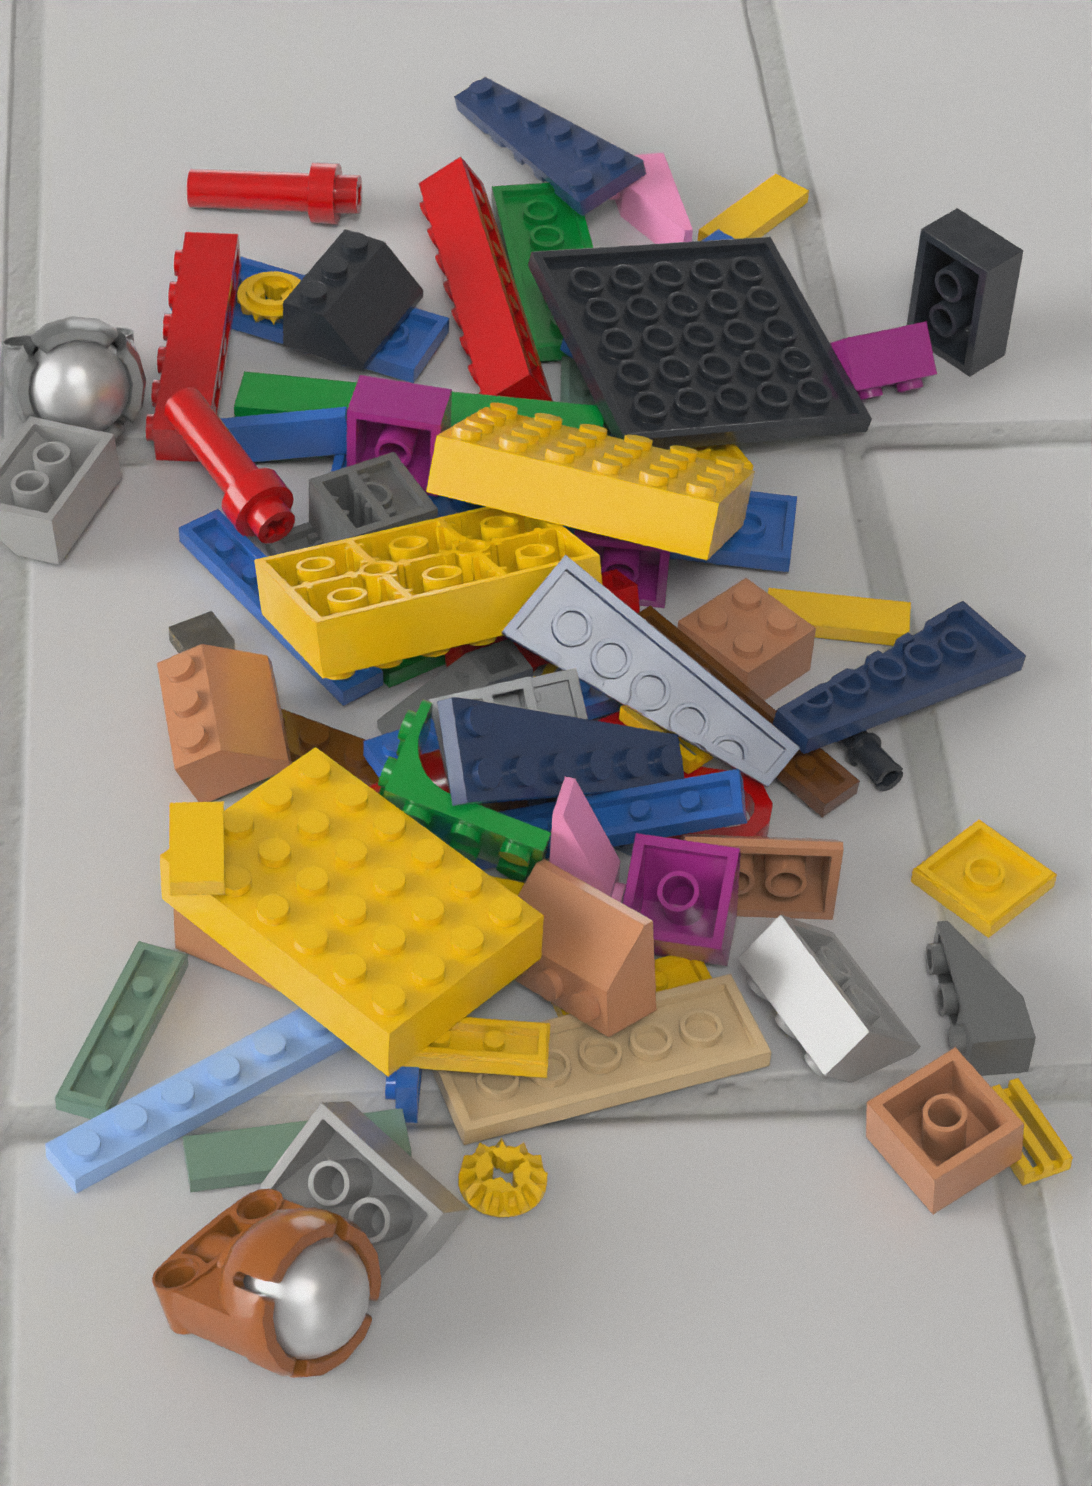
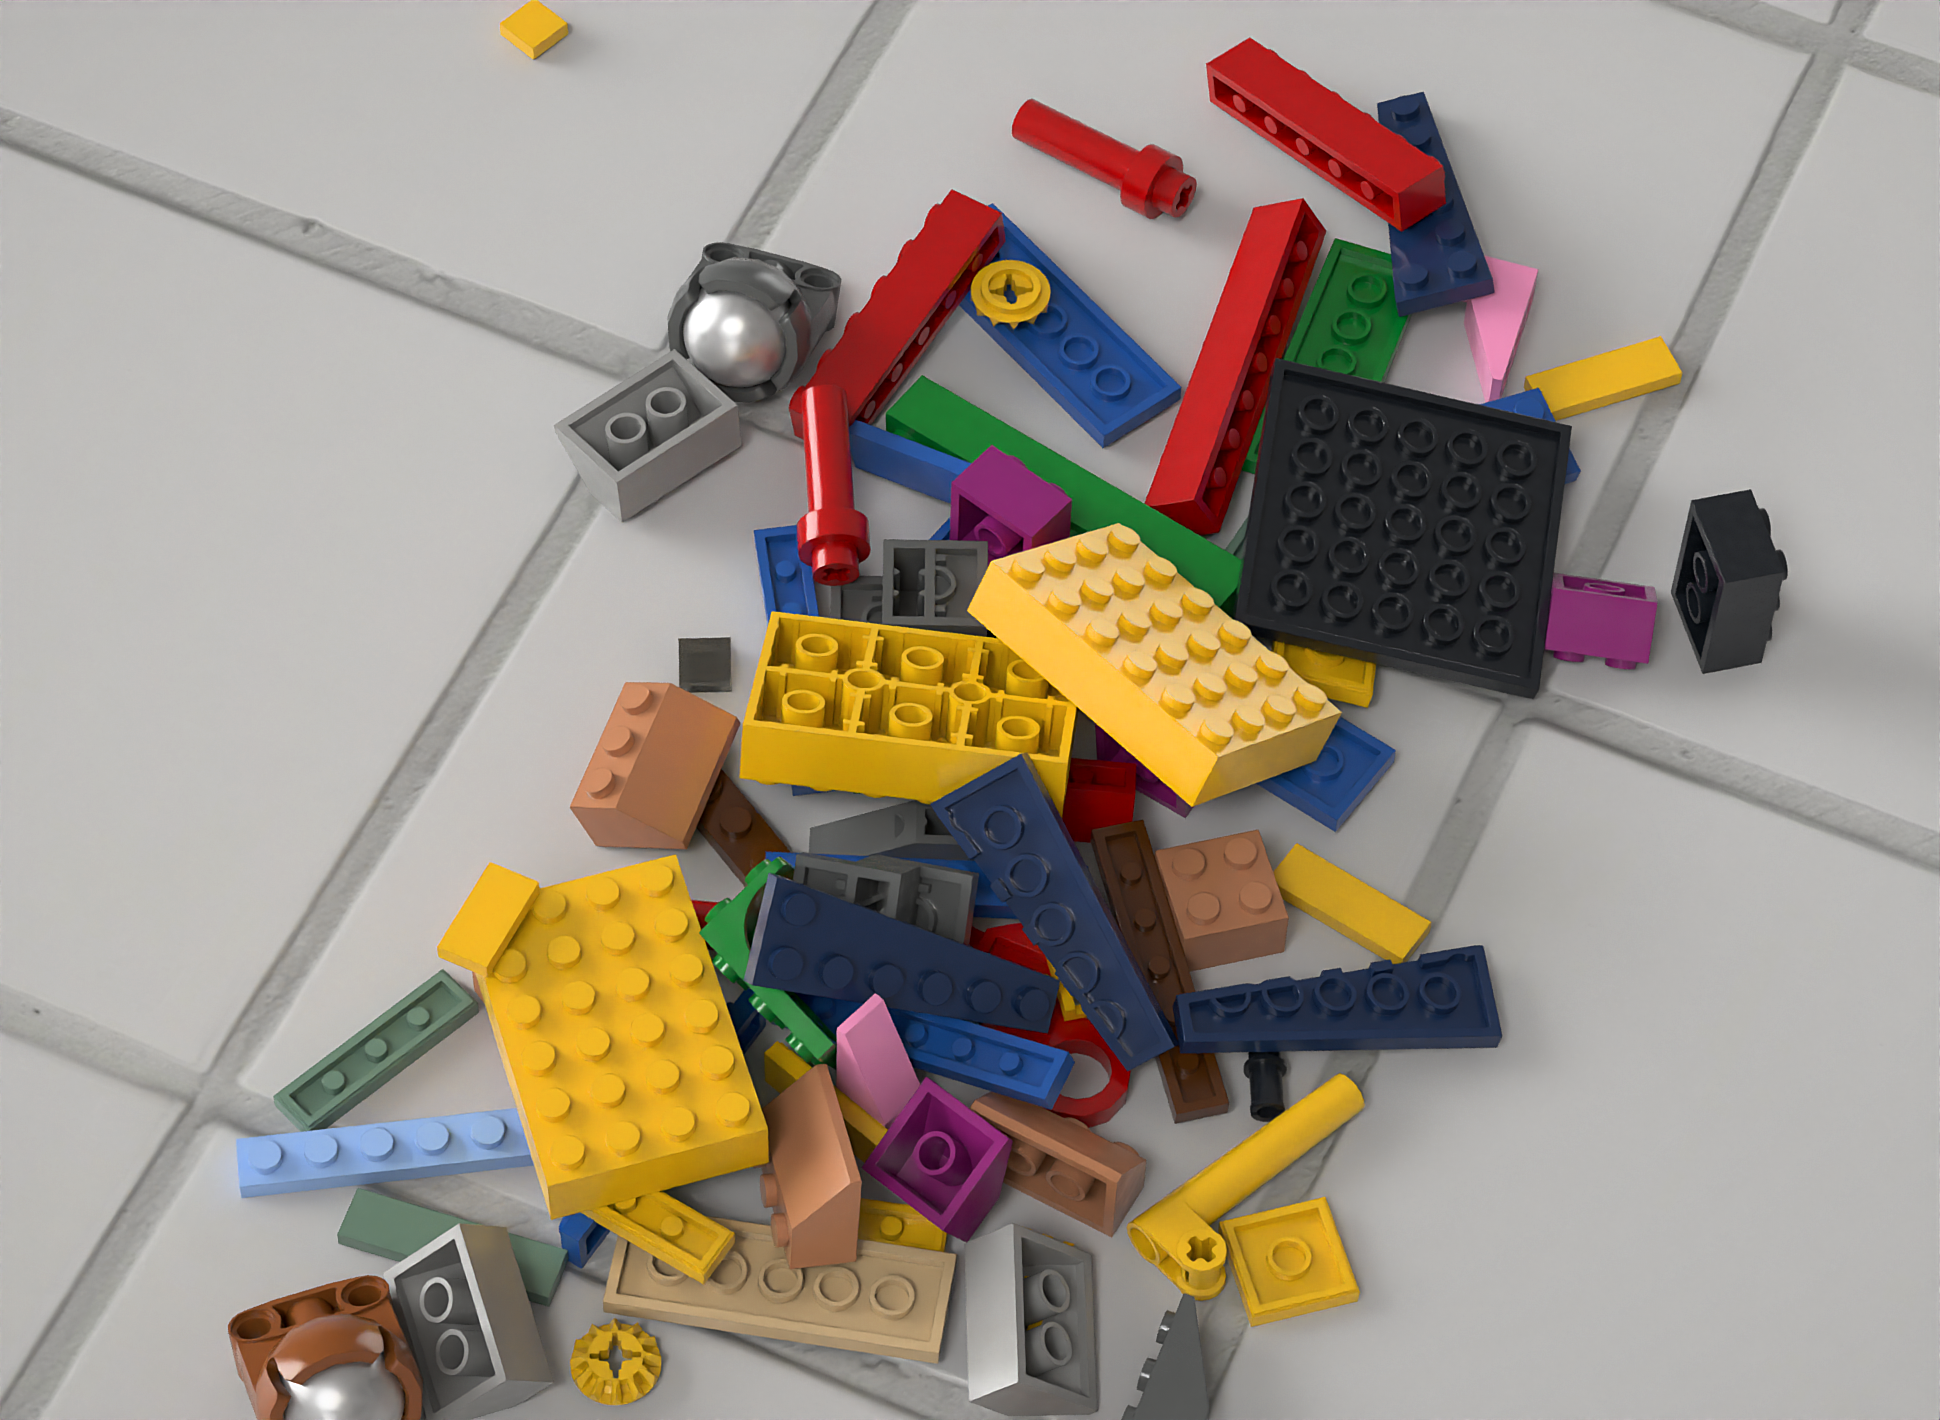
camera: 30 degrees right, 10 degrees up
(350, 302) = (1080, 333): black slope -> none
(441, 116) = (1326, 134): none -> red brick
(888, 886) = (1177, 1228): none -> yellow axle

